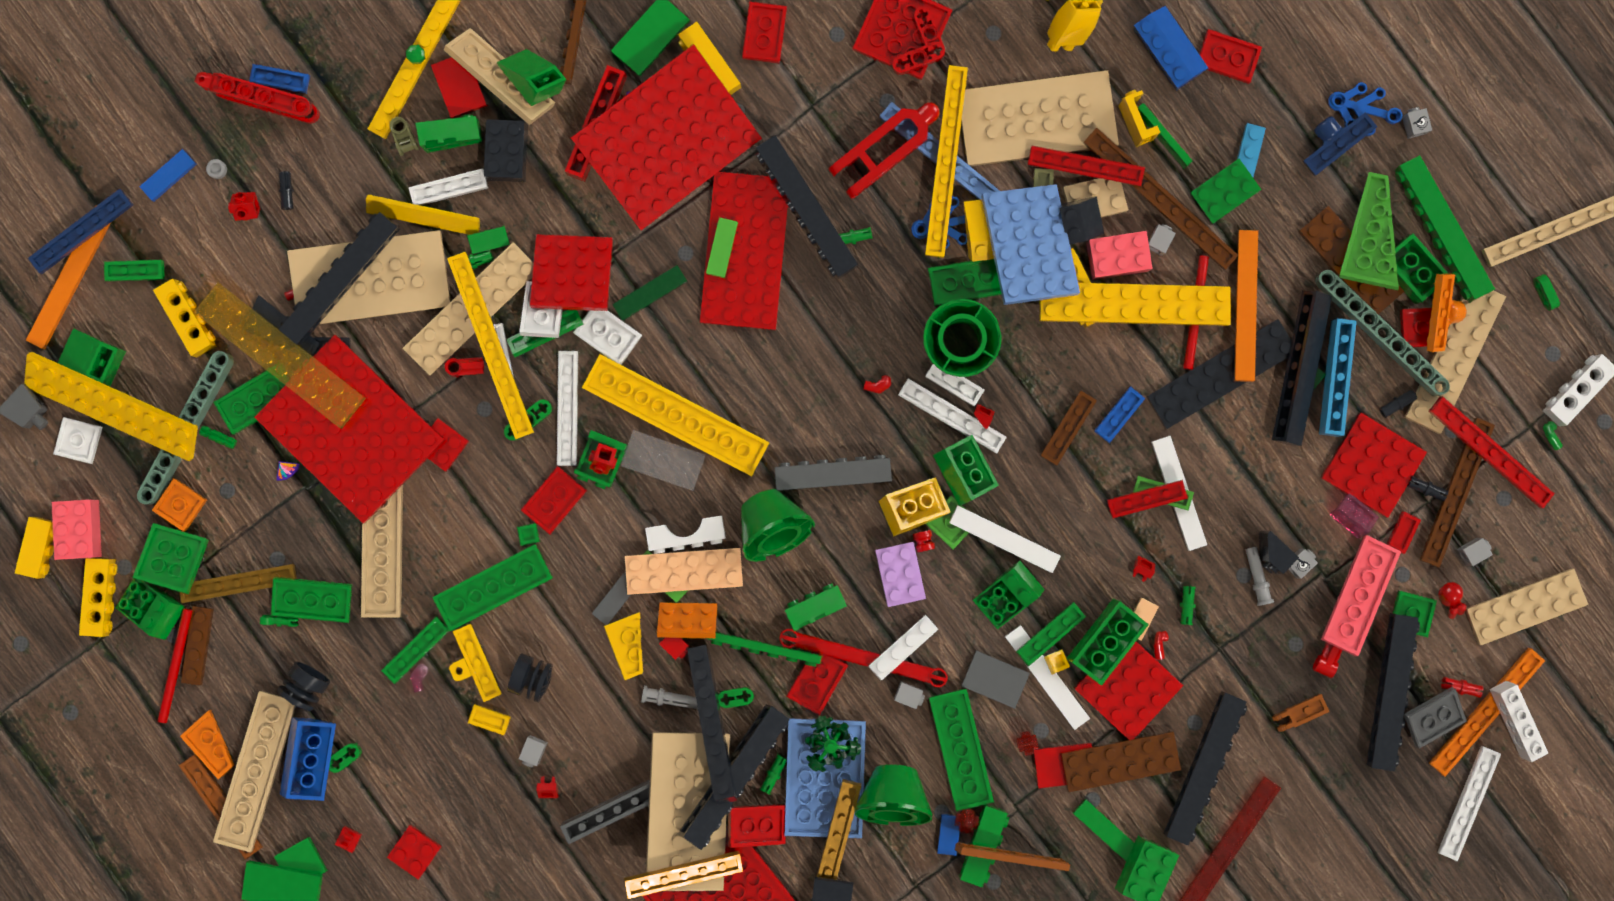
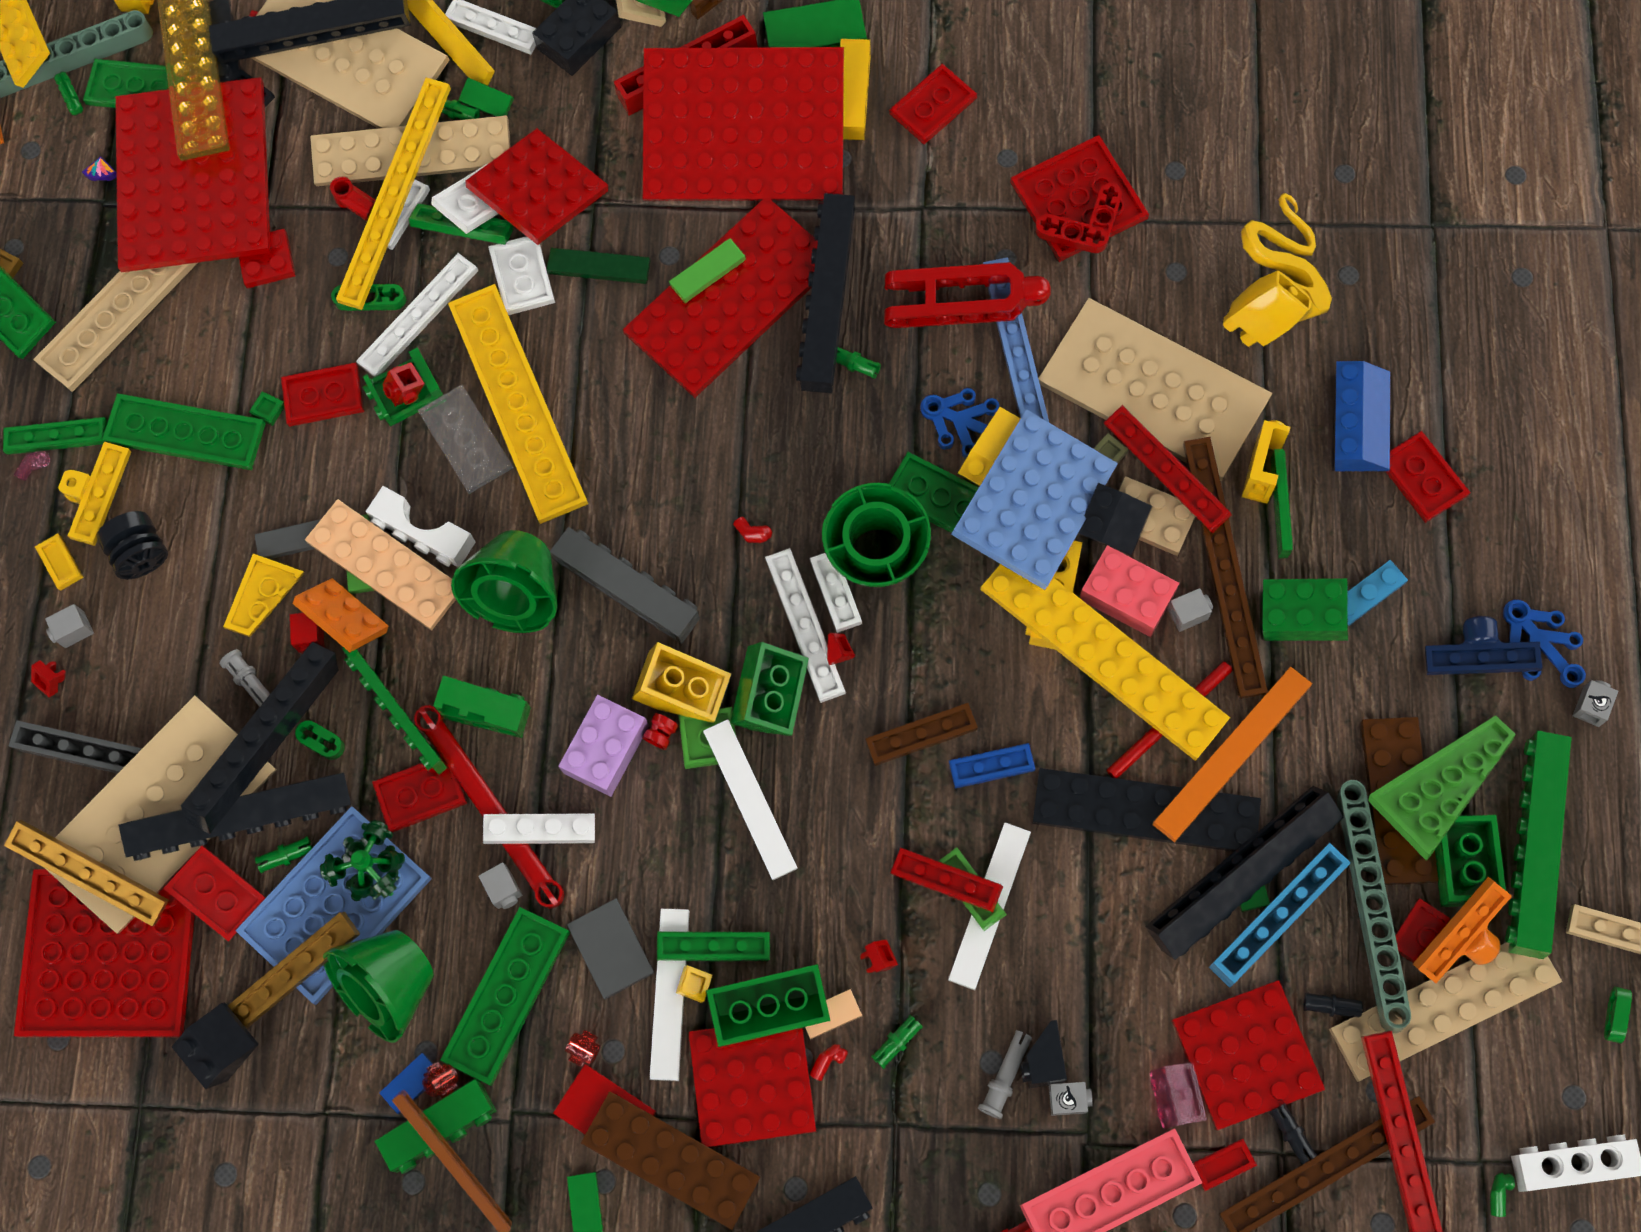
camera: 45 degrees right, 15 degrees down
(946, 161) = (1014, 355): yellow plate -> none
(1009, 595) = (704, 864): green slope -> none

